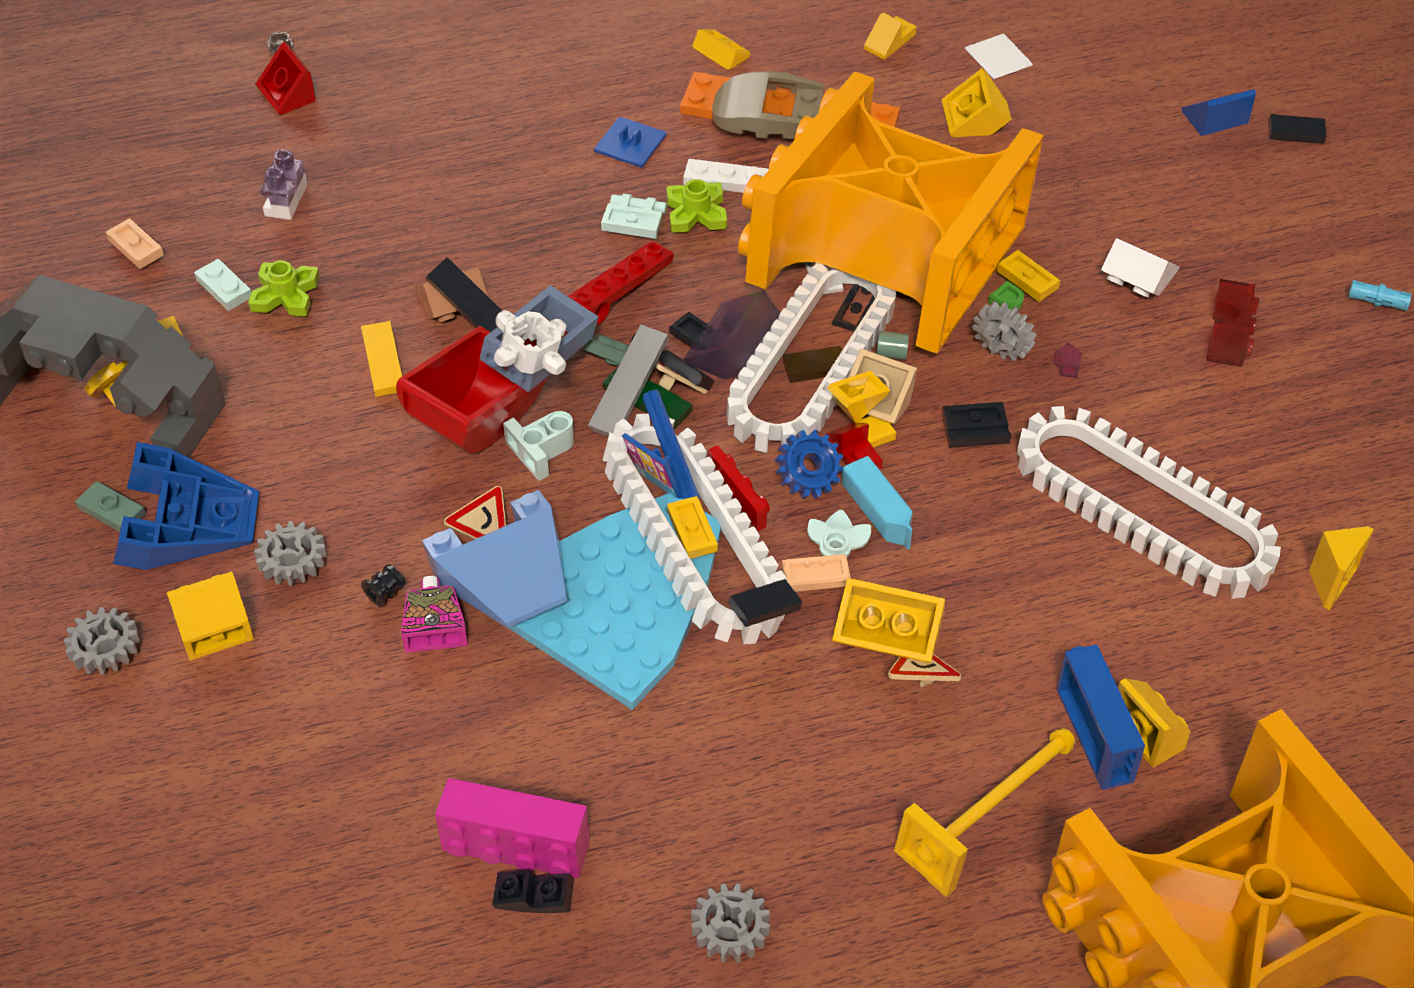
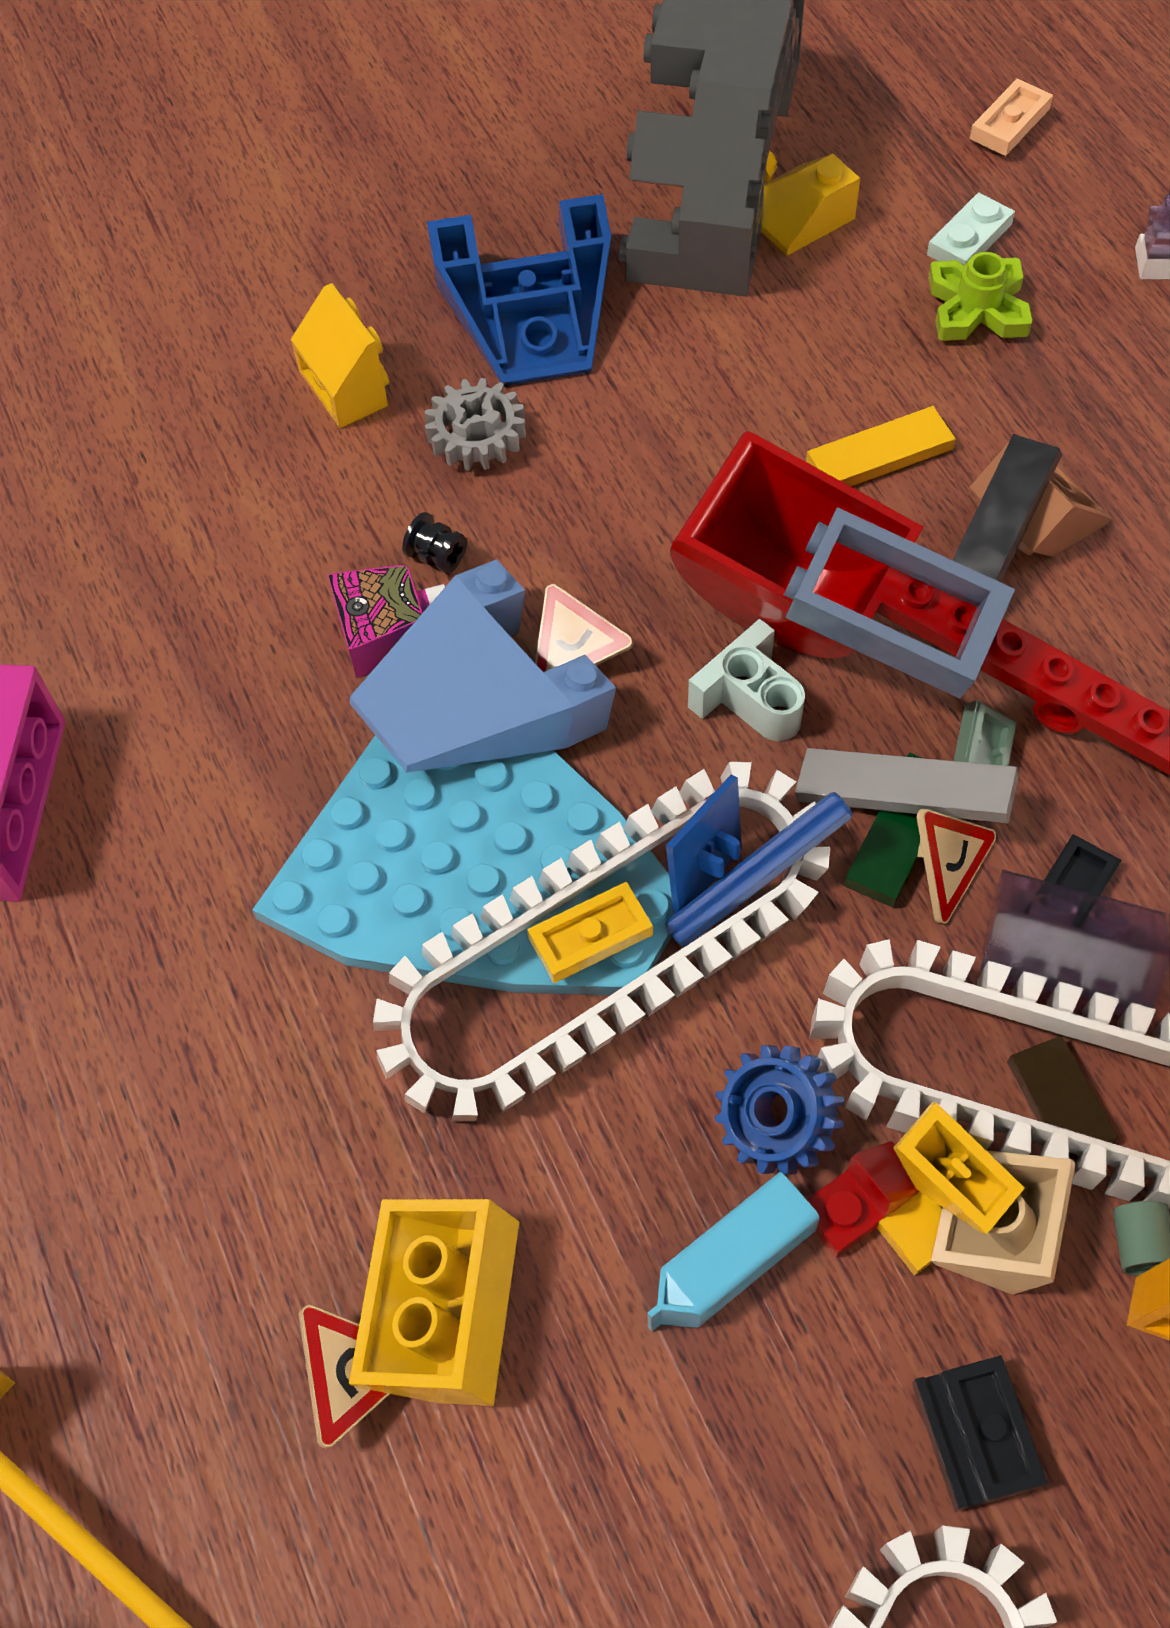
camera: 85 degrees right, 10 degrees up
(101, 640) = (302, 266): light grey gear -> none
(108, 505) = (529, 223): sand green plate -> none
(529, 358) = (858, 540): white piece -> none
(685, 369) = (977, 862): black tile -> none
(754, 506) = (715, 1001): red tile -> none
(765, 602) = (425, 1067): black tile -> none
(816, 572) = (551, 1161): light nougat plate -> none
(838, 533) = (657, 1195): light aqua plate -> none

